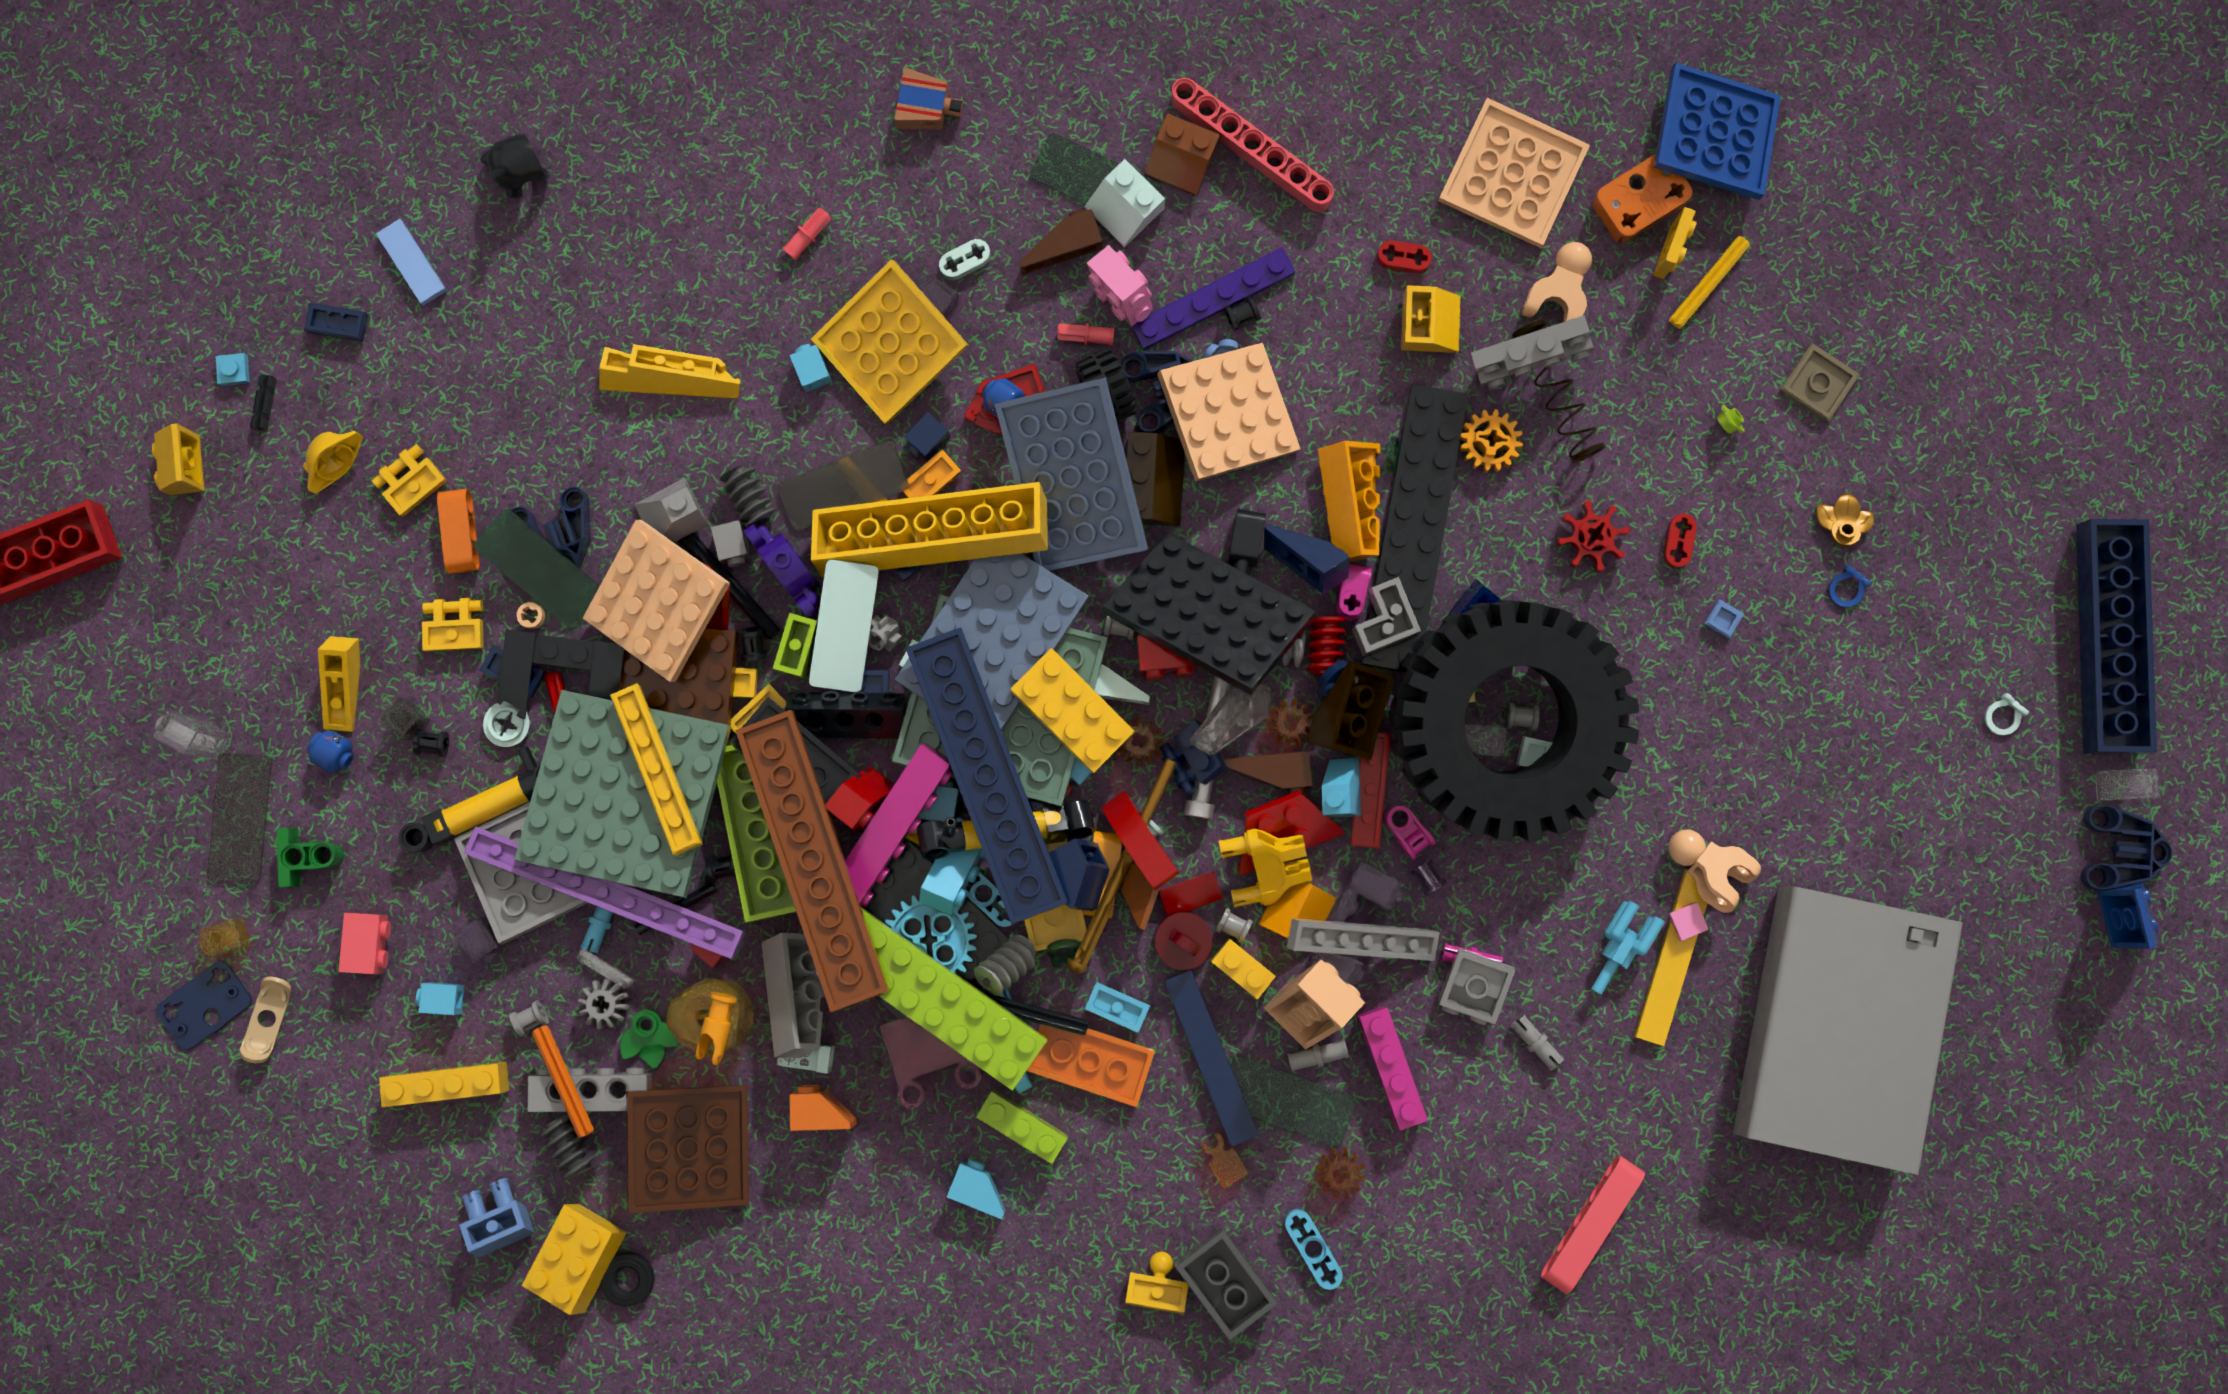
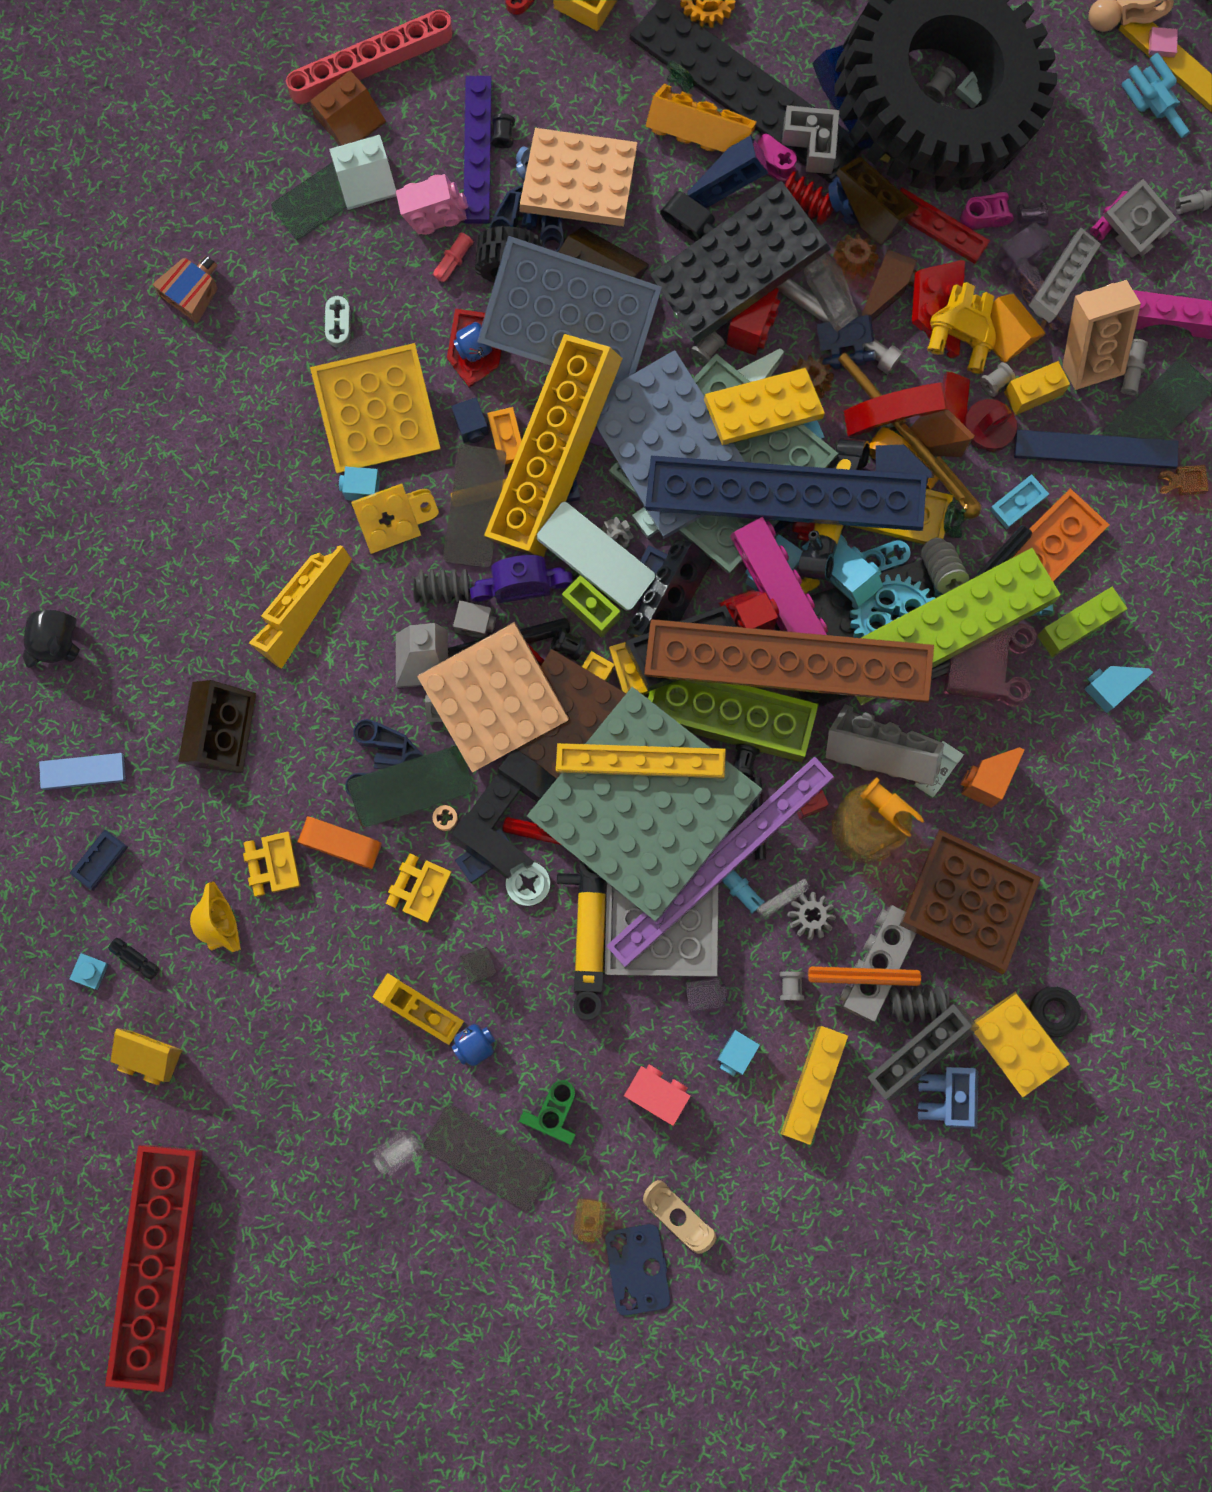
camera: 65 degrees left, 5 degrees down
(431, 742) = (511, 955): black bush -> none
(510, 361) = (217, 726): none -> dark brown slope
(517, 1171) = (923, 1052): none -> dark grey brick
(647, 1043) = (862, 895): green plate -> none
(804, 425) = (406, 515): none -> yellow plate
(807, 233) = (245, 434): coral axle -> none
(1068, 240) = (368, 225): reddish brown slope -> none
(1342, 788) = (928, 241): medium azure slope -> none

